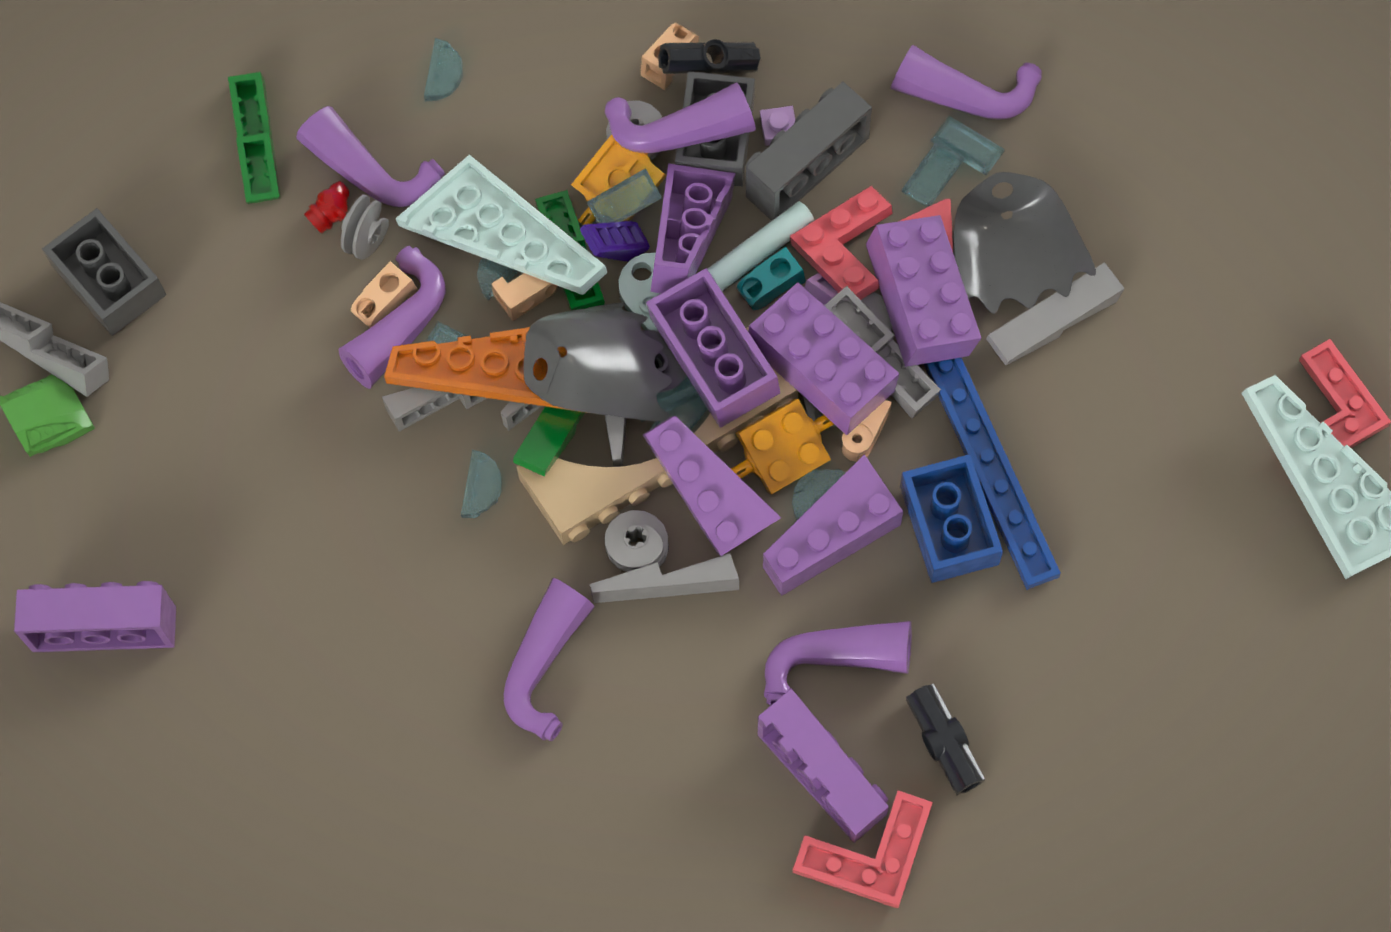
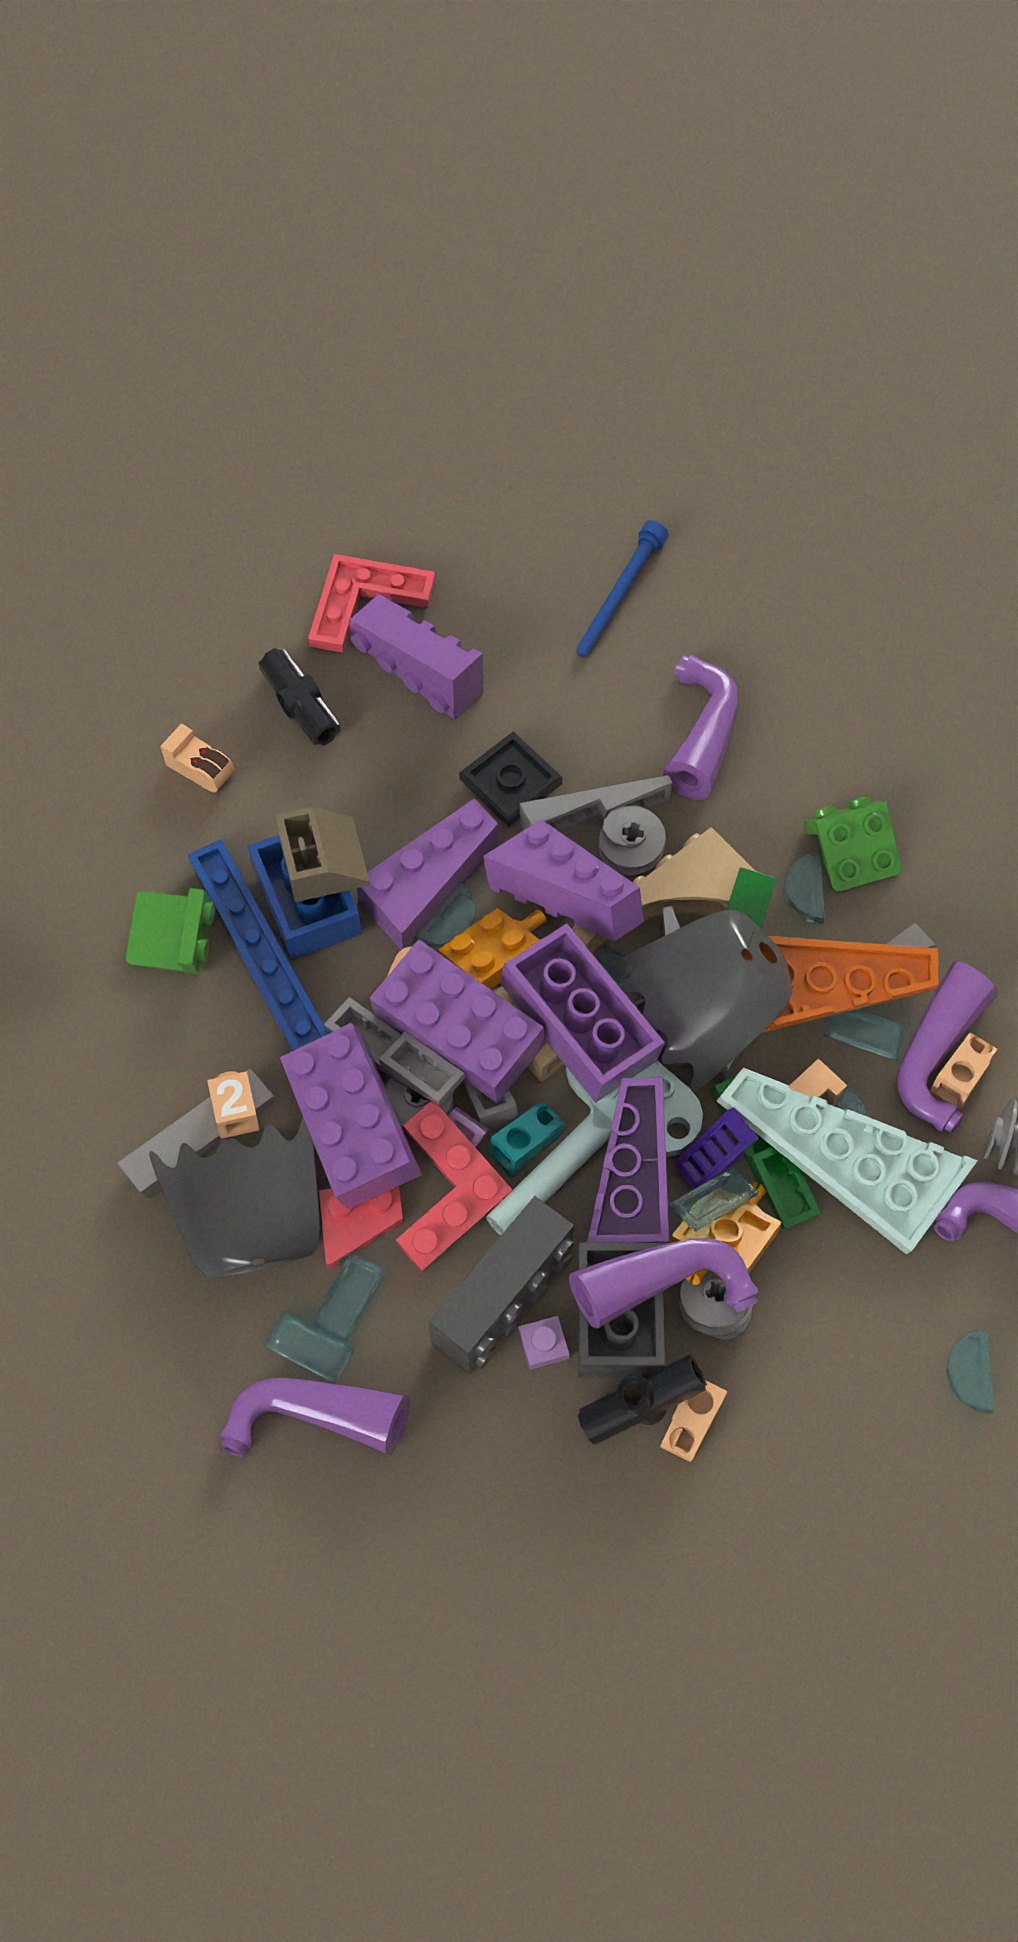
camera: 170 degrees right, 5 degrees down
(427, 523) = (856, 842): none -> bright green bracket
(557, 892) = (651, 538): none -> blue piece
(742, 625) = (510, 776): none -> black plate
(866, 646) = (390, 765): medium lavender animal -> none
(934, 515) = (320, 852): none -> dark tan slope
(1023, 316) = (233, 1104): none -> light nougat brick
(1048, 677) = (196, 759): none -> light nougat leg
(1076, 497) = (170, 931): none -> bright green bracket

